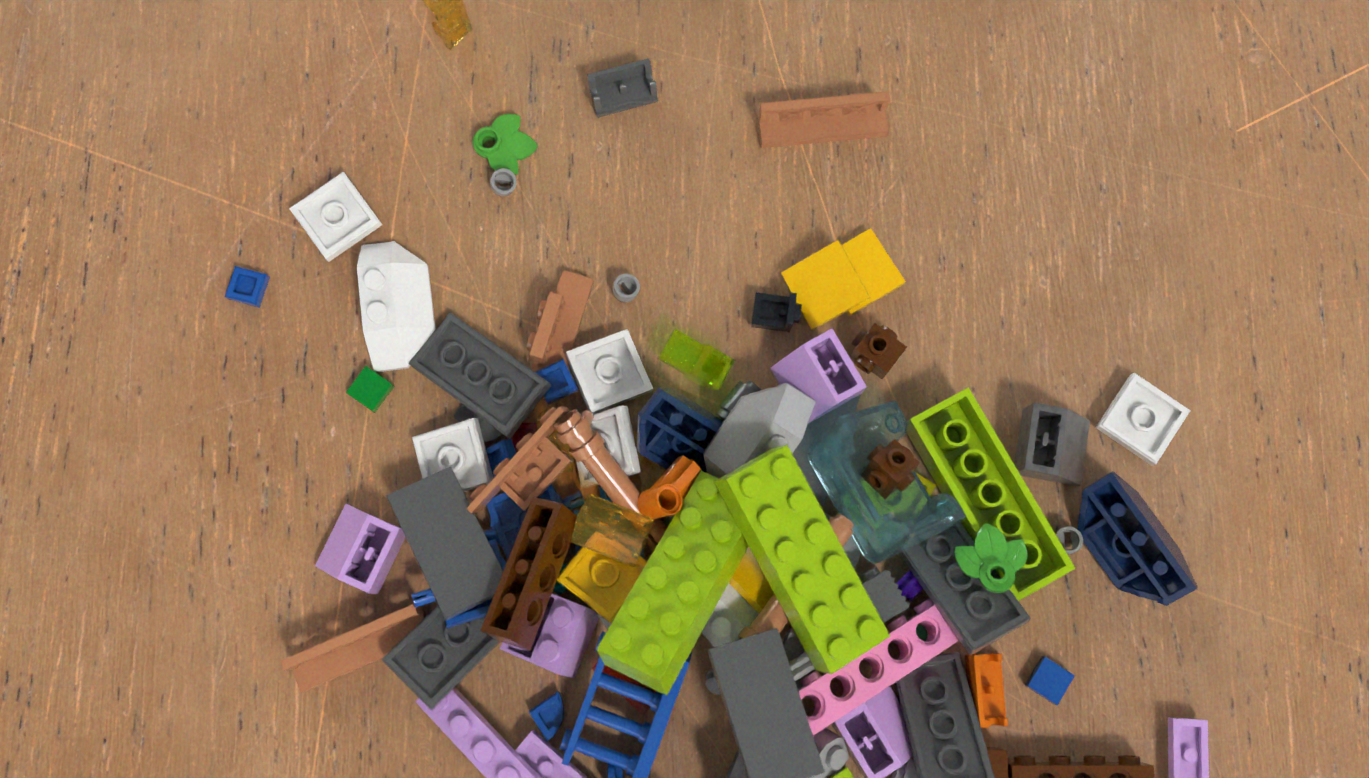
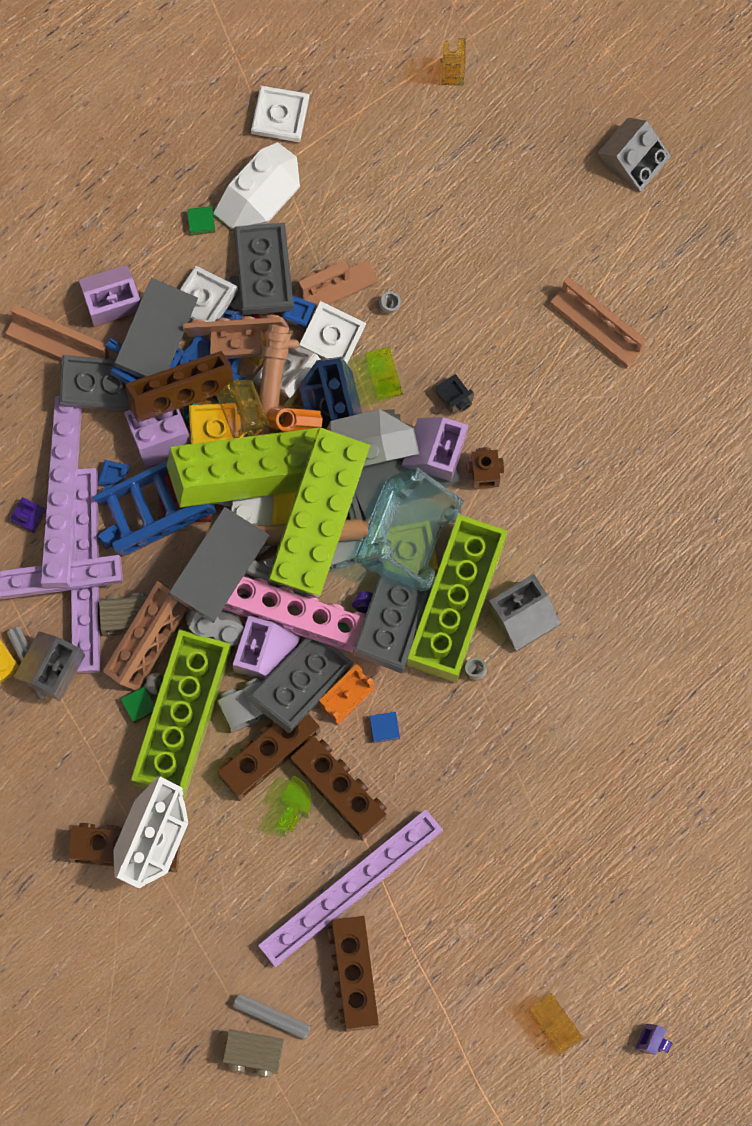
camera: 50 degrees right, 5 degrees down
(247, 286) = (196, 105): blue tile -> none
(503, 176) = (390, 179): light grey hinge -> none
(509, 143) = (413, 166): bright green plate -> none
(622, 88) = (507, 196): dark grey hinge -> none
(825, 285) = (497, 408): yellow tile -> none
(873, 267) = (526, 422): yellow tile -> none
(883, 593) = (341, 584): dark grey brick -> none
(890, 468) = (418, 527): reddish brown brick -> none
(992, 553) = (420, 619): bright green plate -> none
(1132, 542) = (509, 699): dark blue wedge -> none
(1143, 419) = (590, 653): white plate -> none

